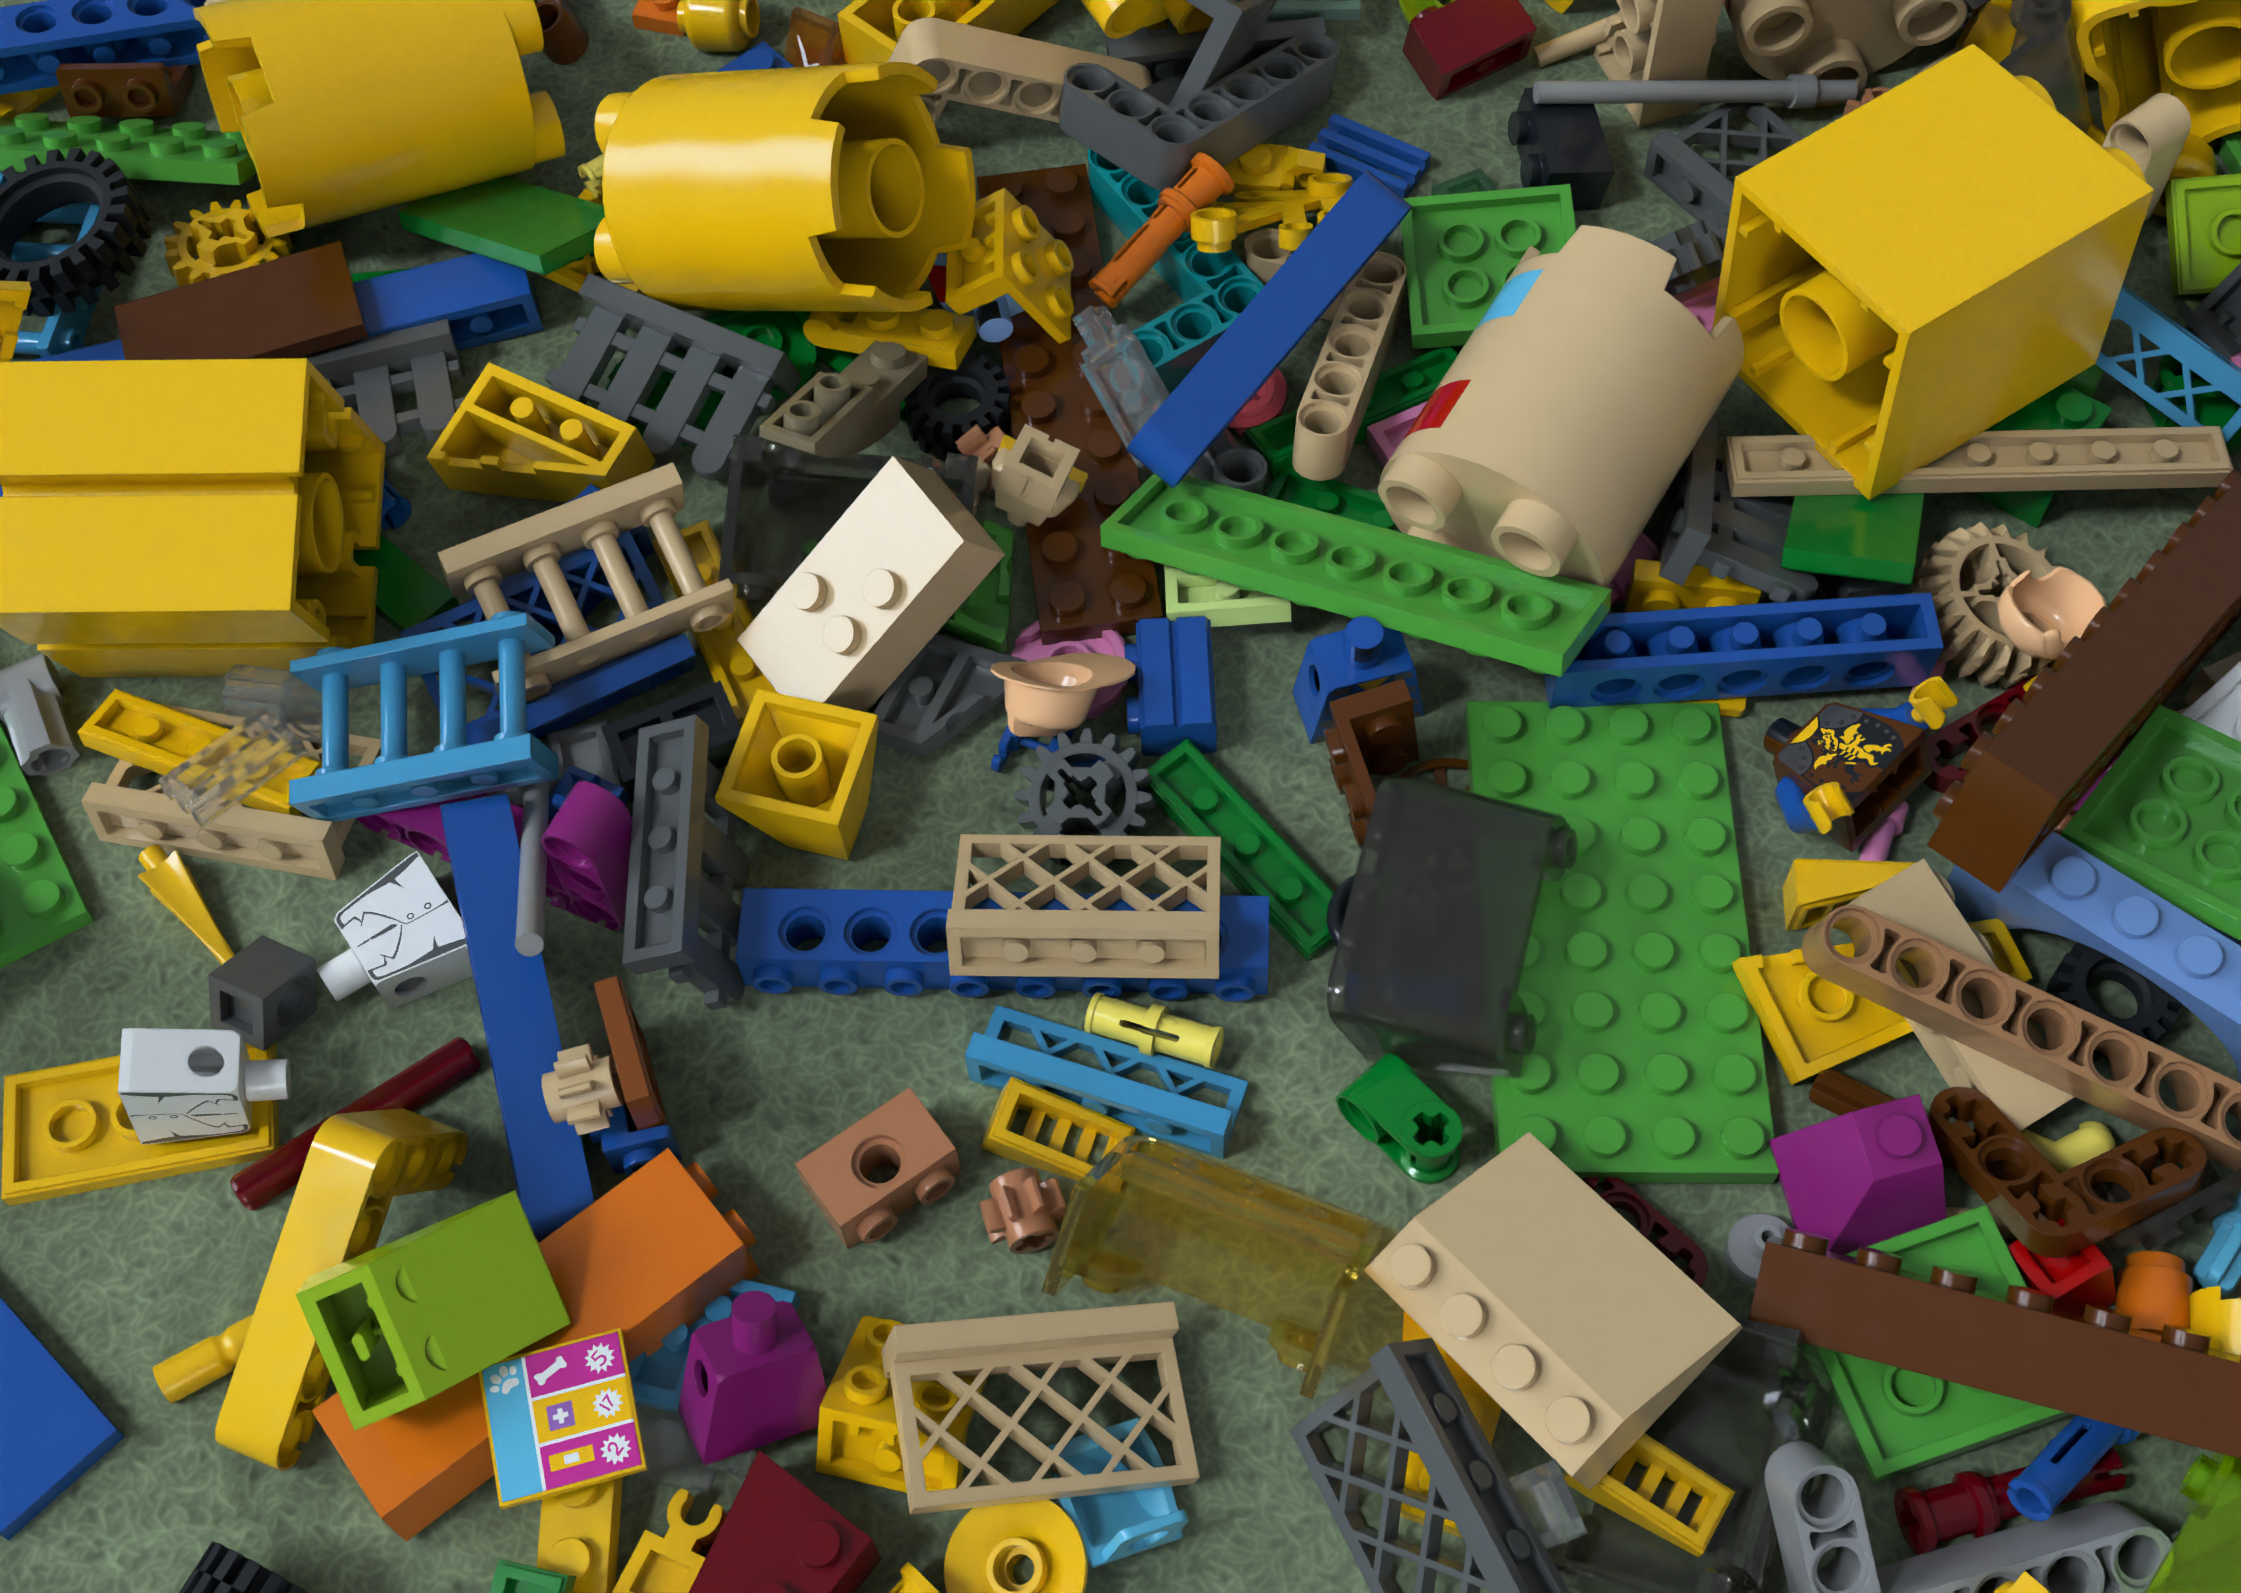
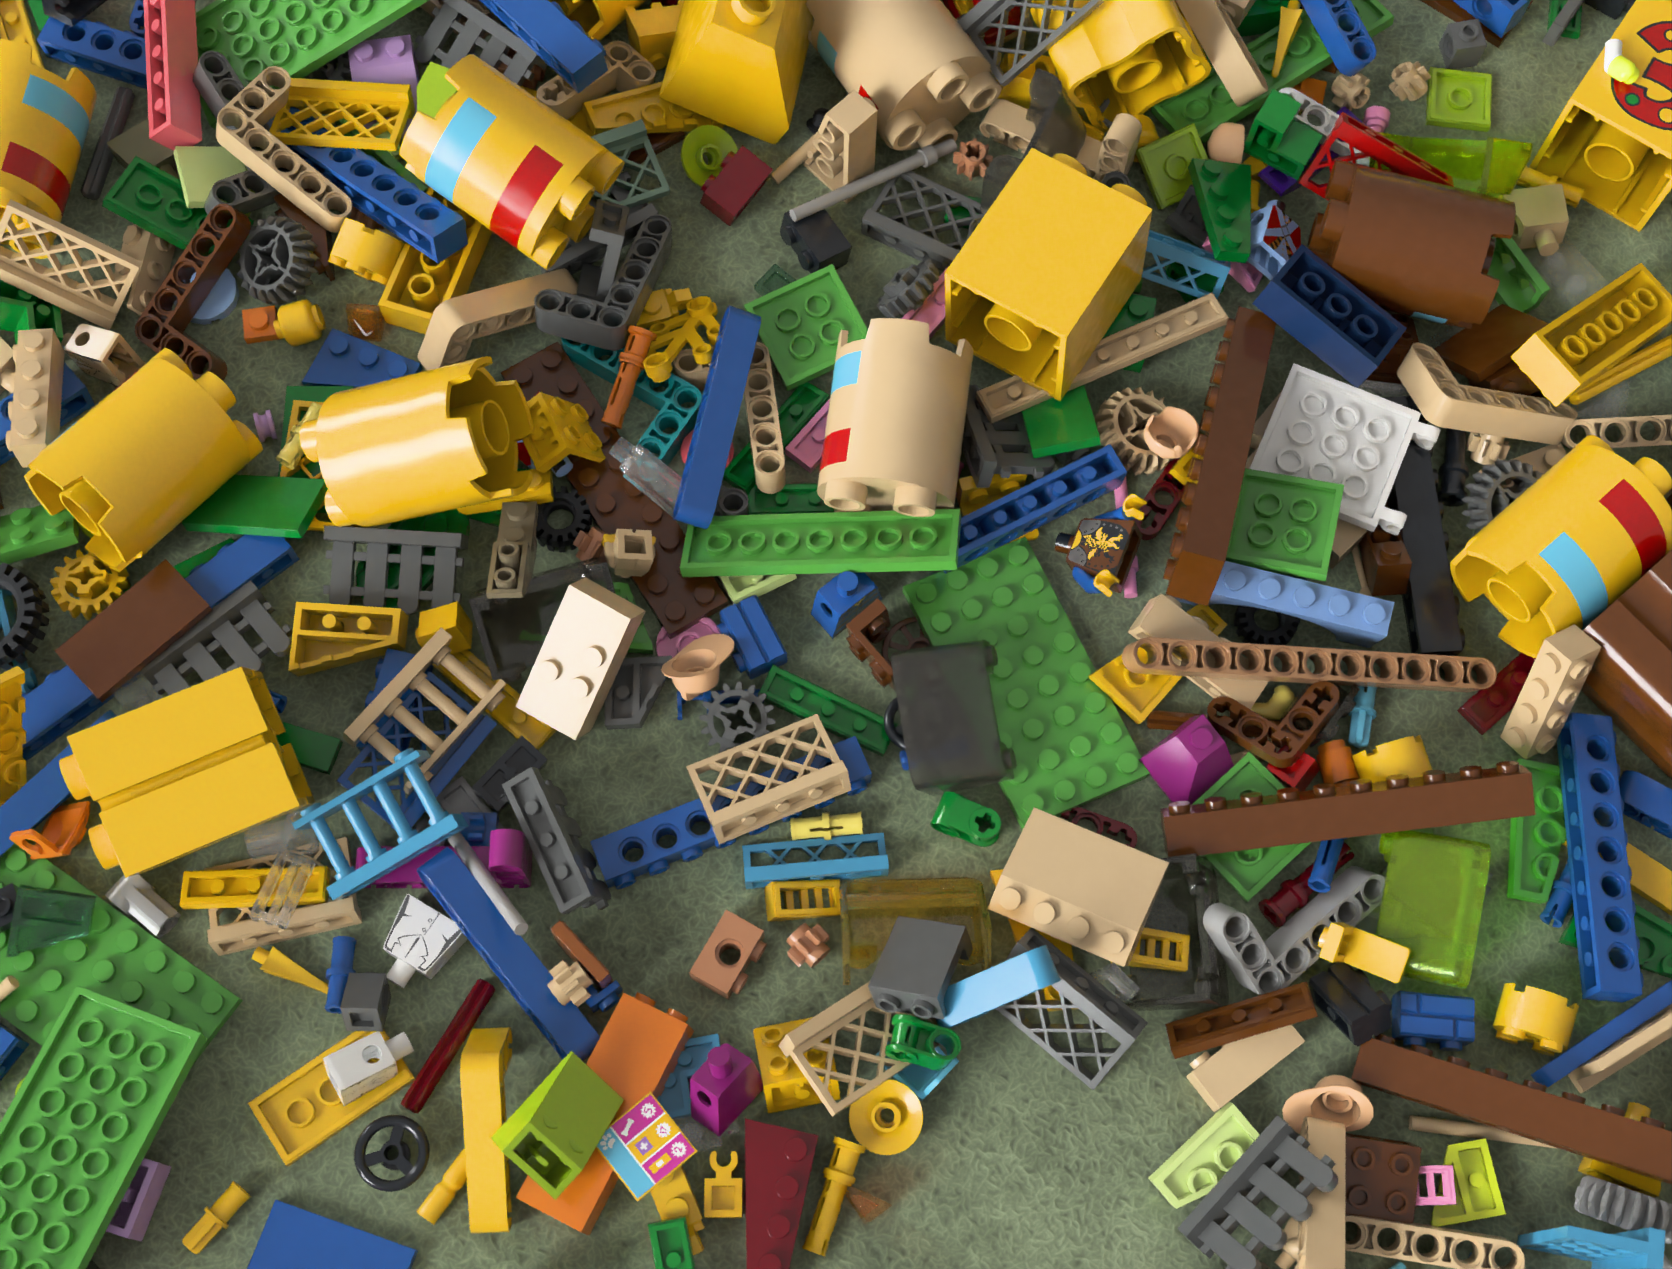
camera: 30 degrees left, 10 degrees up
(185, 1276) = (412, 1173): none -> black piece
(268, 918) = (338, 973): none -> blue pin
(585, 133) = (265, 426): none -> lavender bush
(705, 490) = (452, 620): none -> yellow brick
(802, 772) = (586, 765): yellow slope -> none
(1130, 1453) = (915, 1040): none -> green piece
(1191, 1317) = (918, 966): none -> dark grey panel
(1305, 1407) = (998, 986): none -> beam
(1373, 152) = (737, 277): blue tile -> none
(1747, 1242) = (1147, 813): light grey tile -> none
(1823, 885) = (1120, 616): yellow slope -> none

